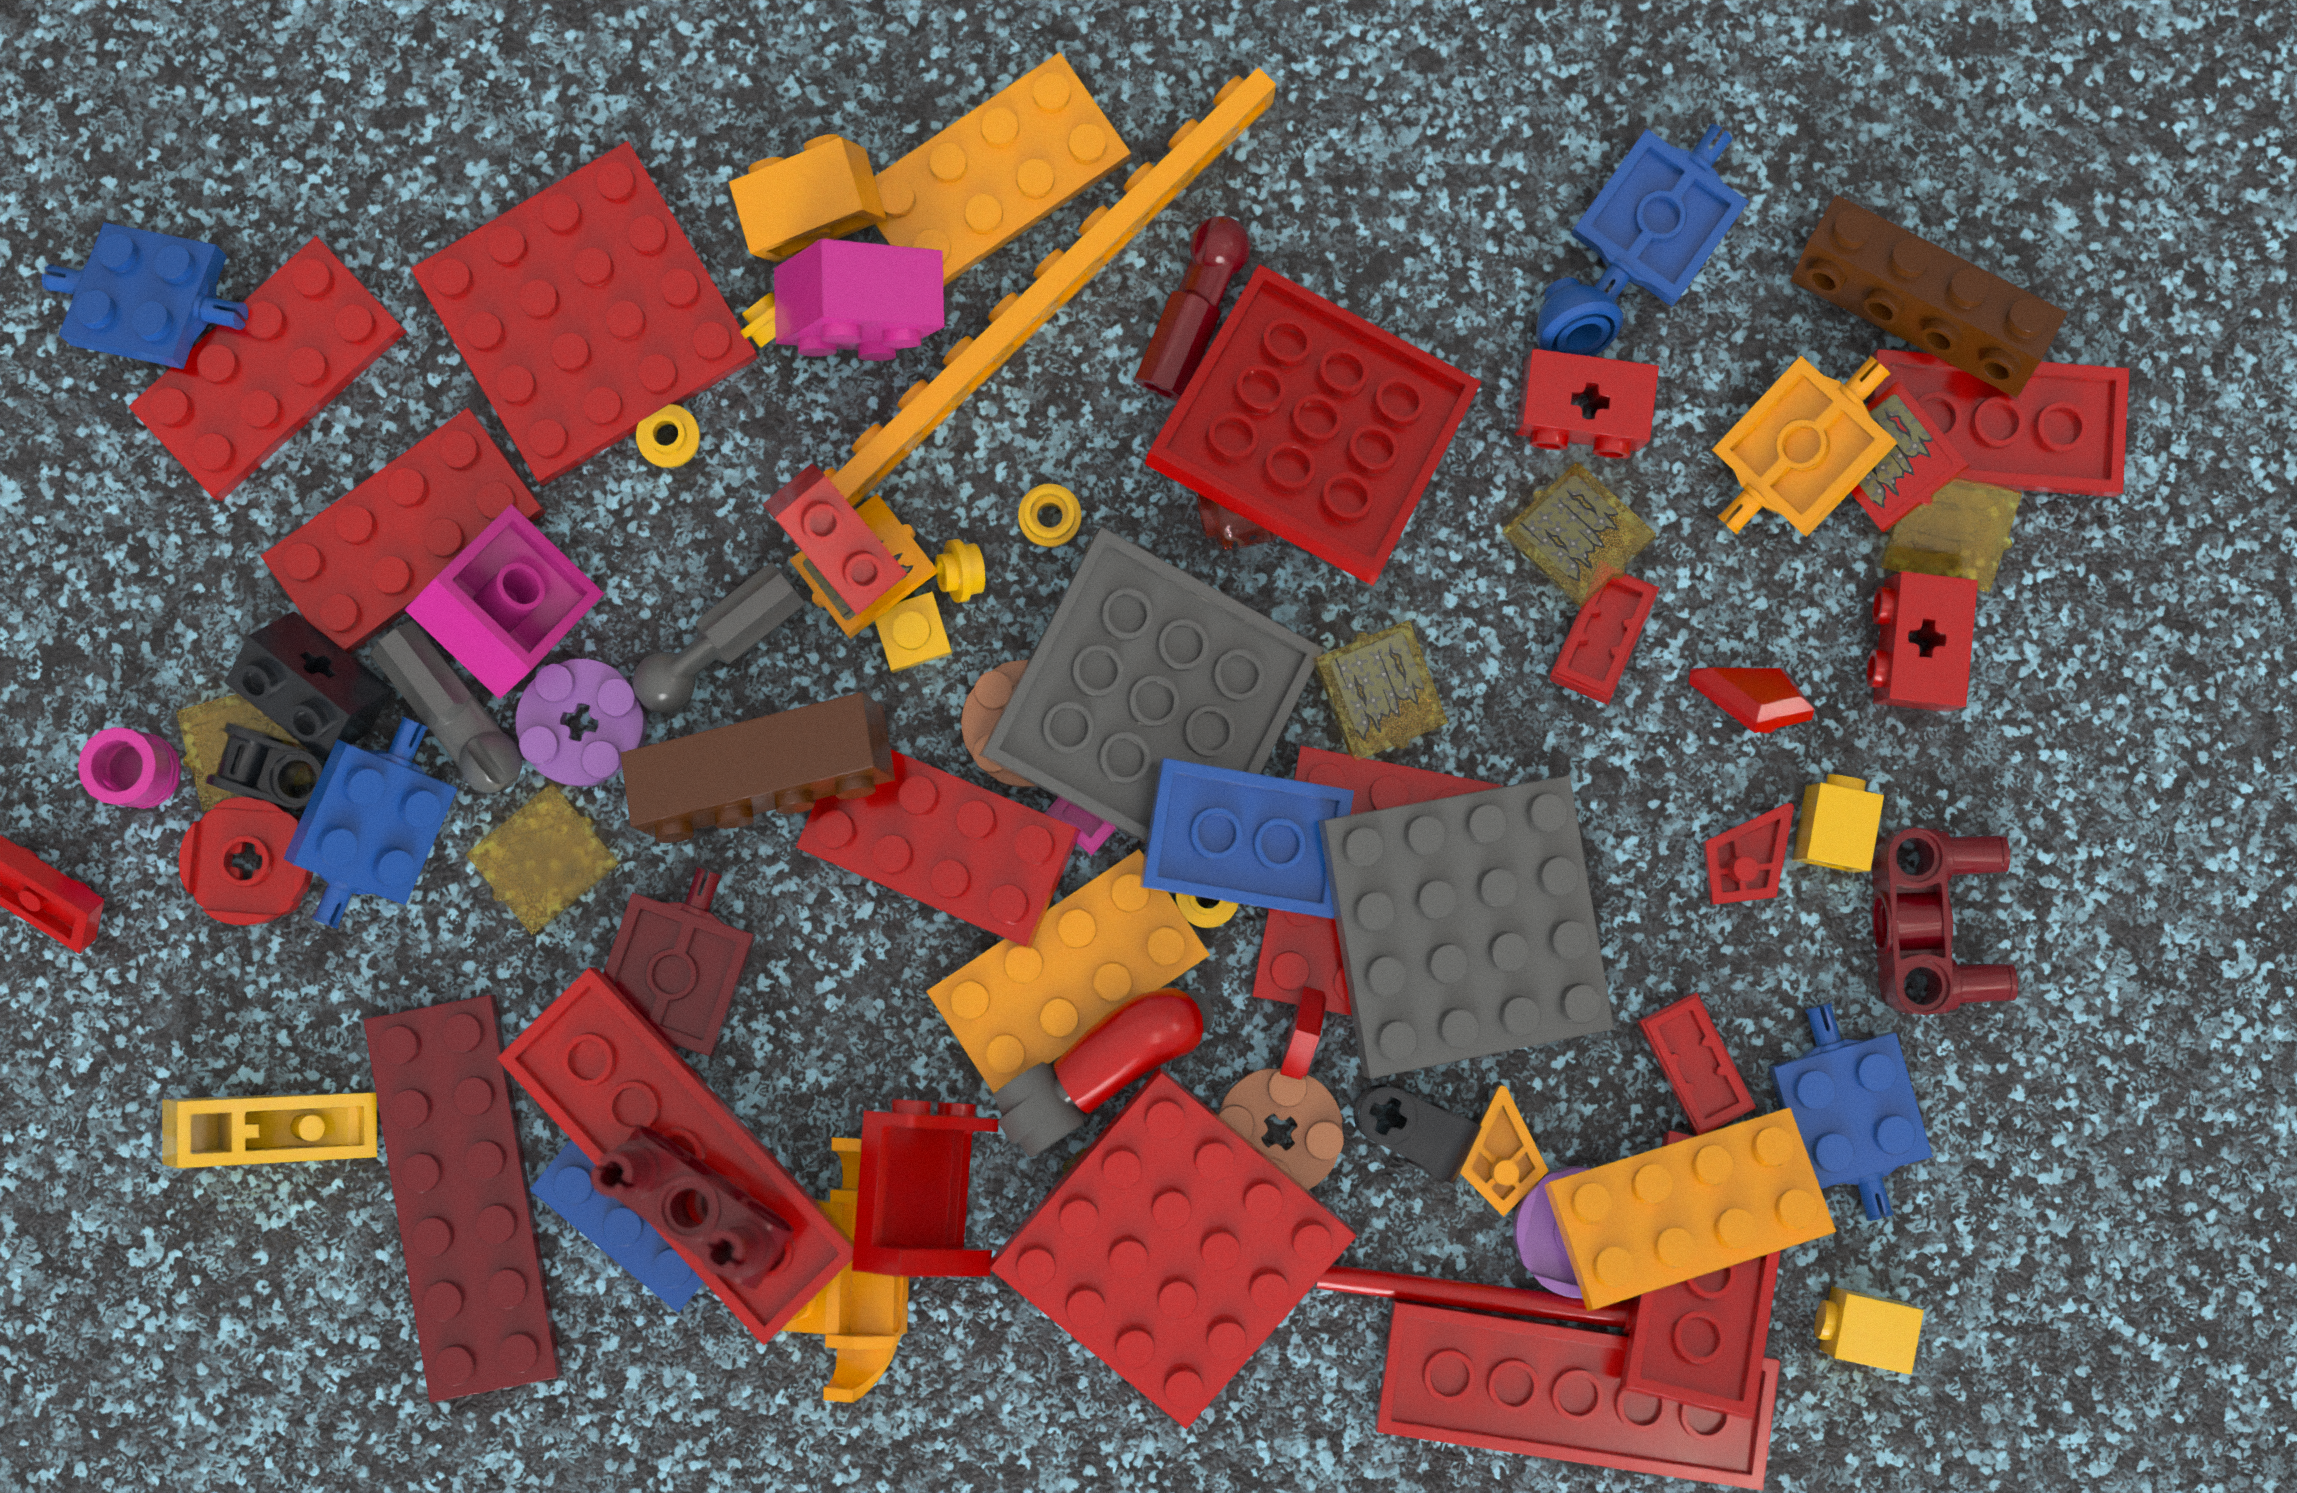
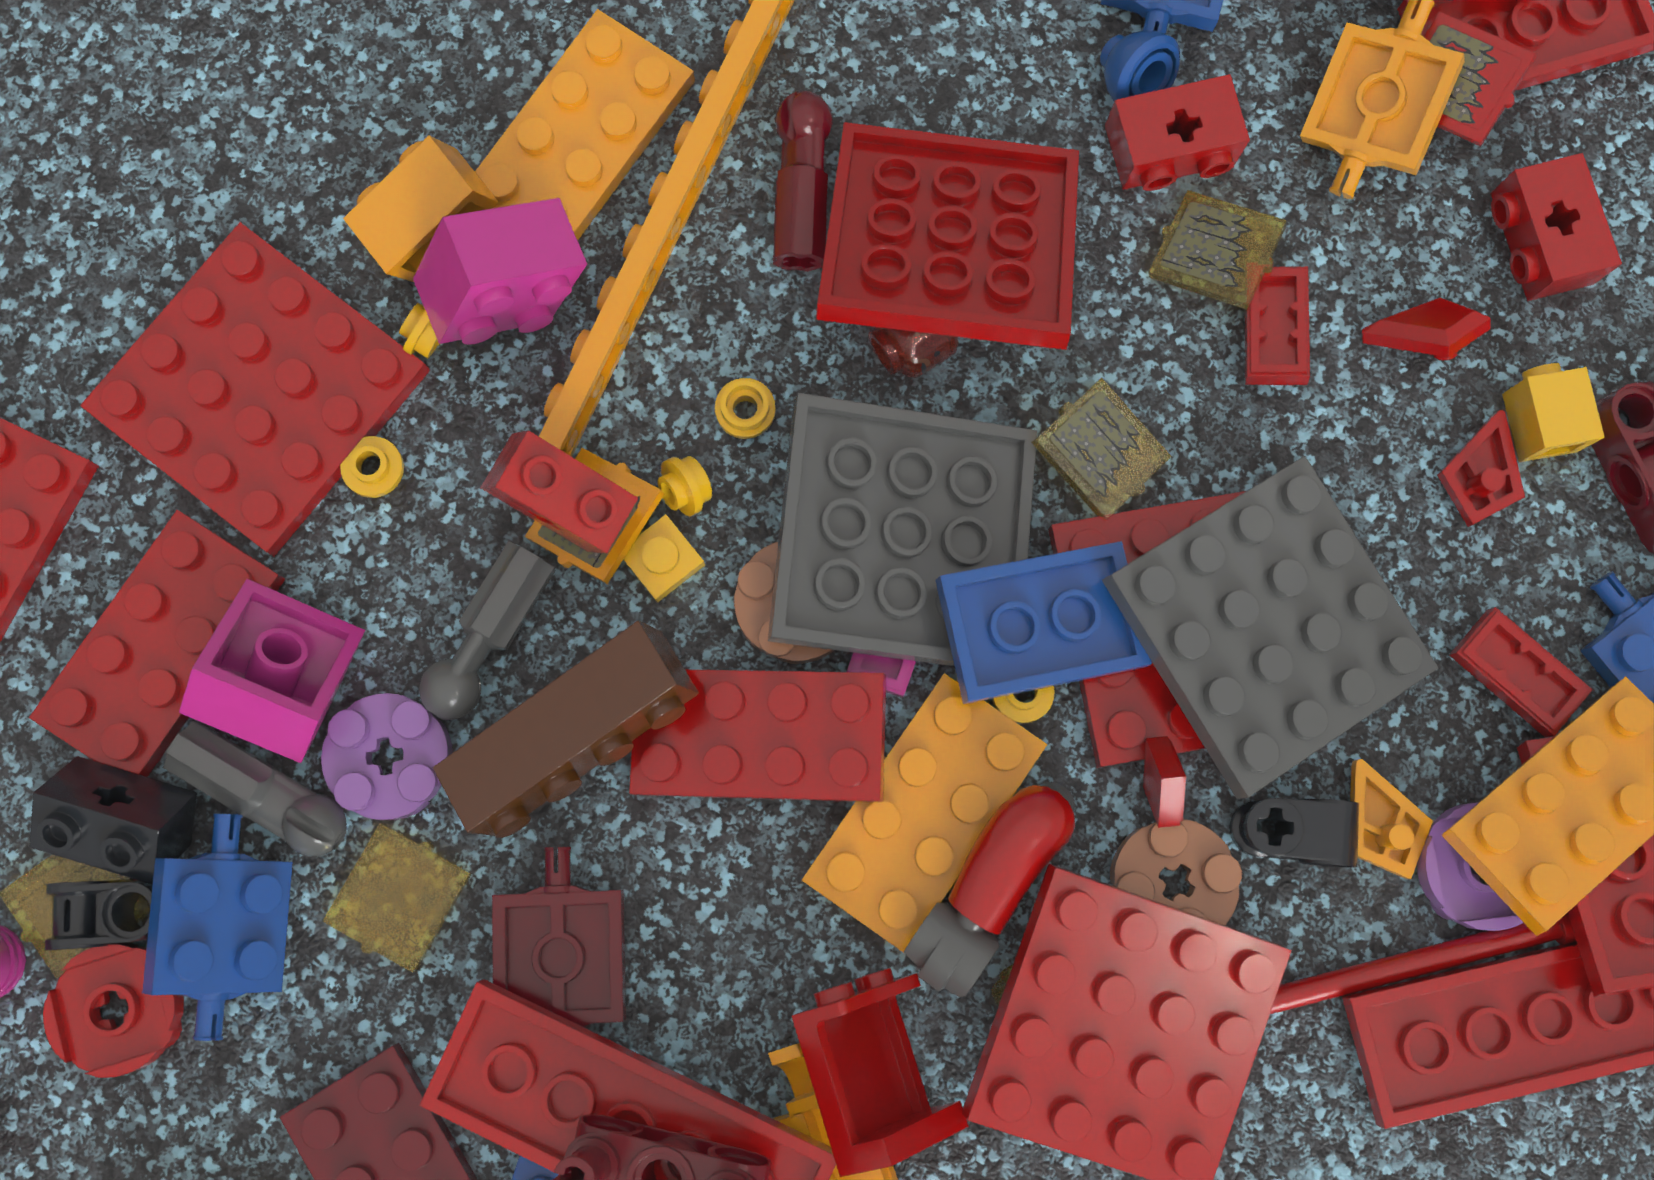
camera: 20 degrees left, 5 degrees down
(1956, 534) = (1540, 125): clear yellow piece -> none

